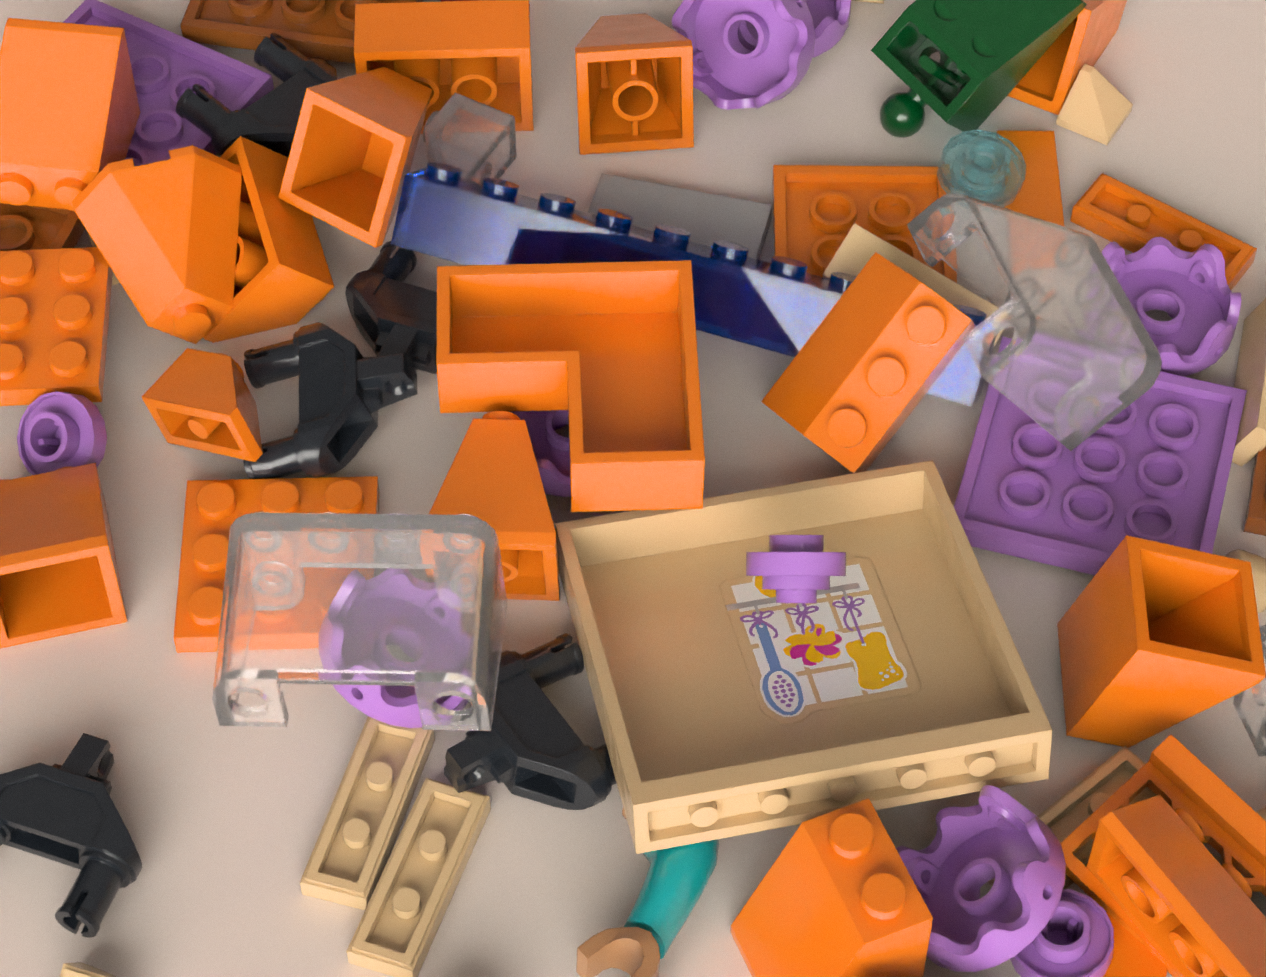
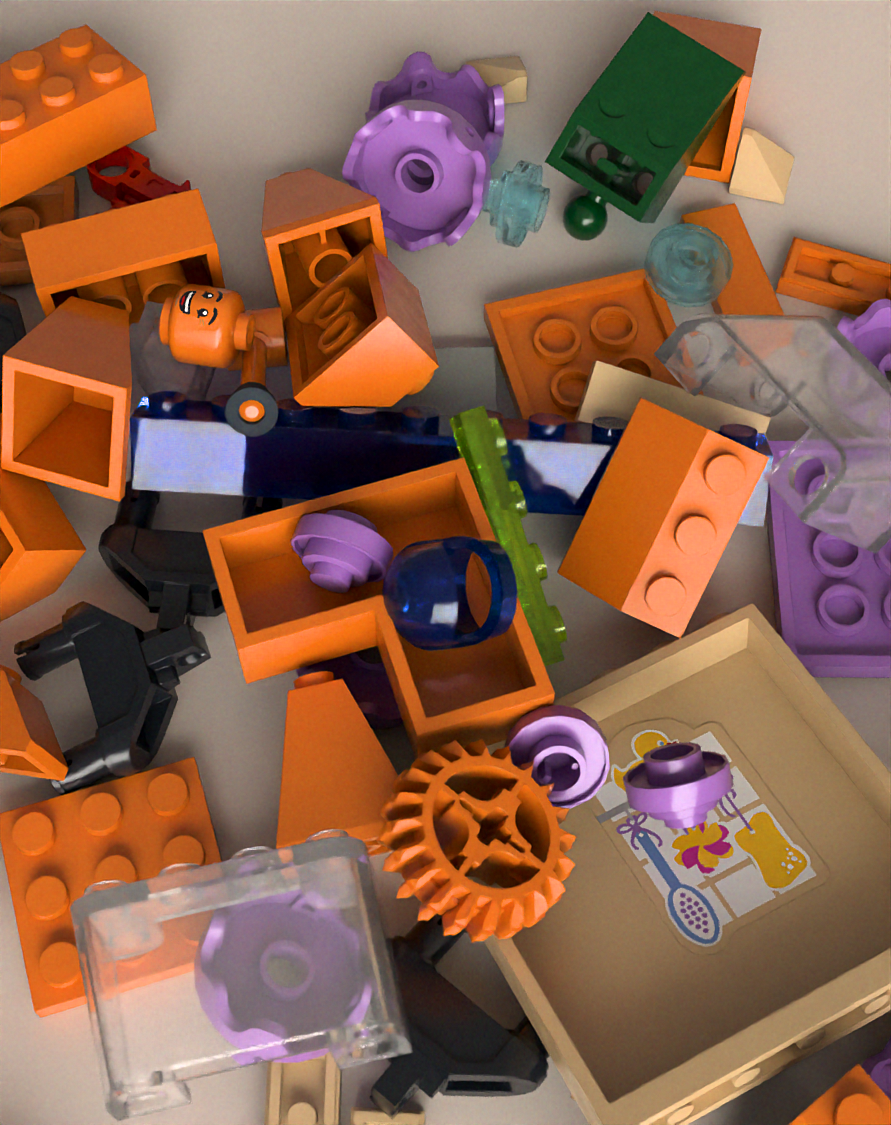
camera: 15 degrees left, 10 degrees up
(500, 119) = (206, 326): none -> orange head
(540, 152) = (252, 407): none -> orange piece
(556, 312) = (341, 550): none -> medium lavender plate
(596, 560) = (500, 839): none -> orange gear
(625, 363) = (429, 597): none -> clear blue helmet
(643, 160) = (360, 338): none -> orange slope
(694, 524) = (564, 749): none -> medium lavender plate
(718, 323) = (482, 445): none -> clear neon green plate
(836, 84) = (517, 203): none -> clear light blue plate

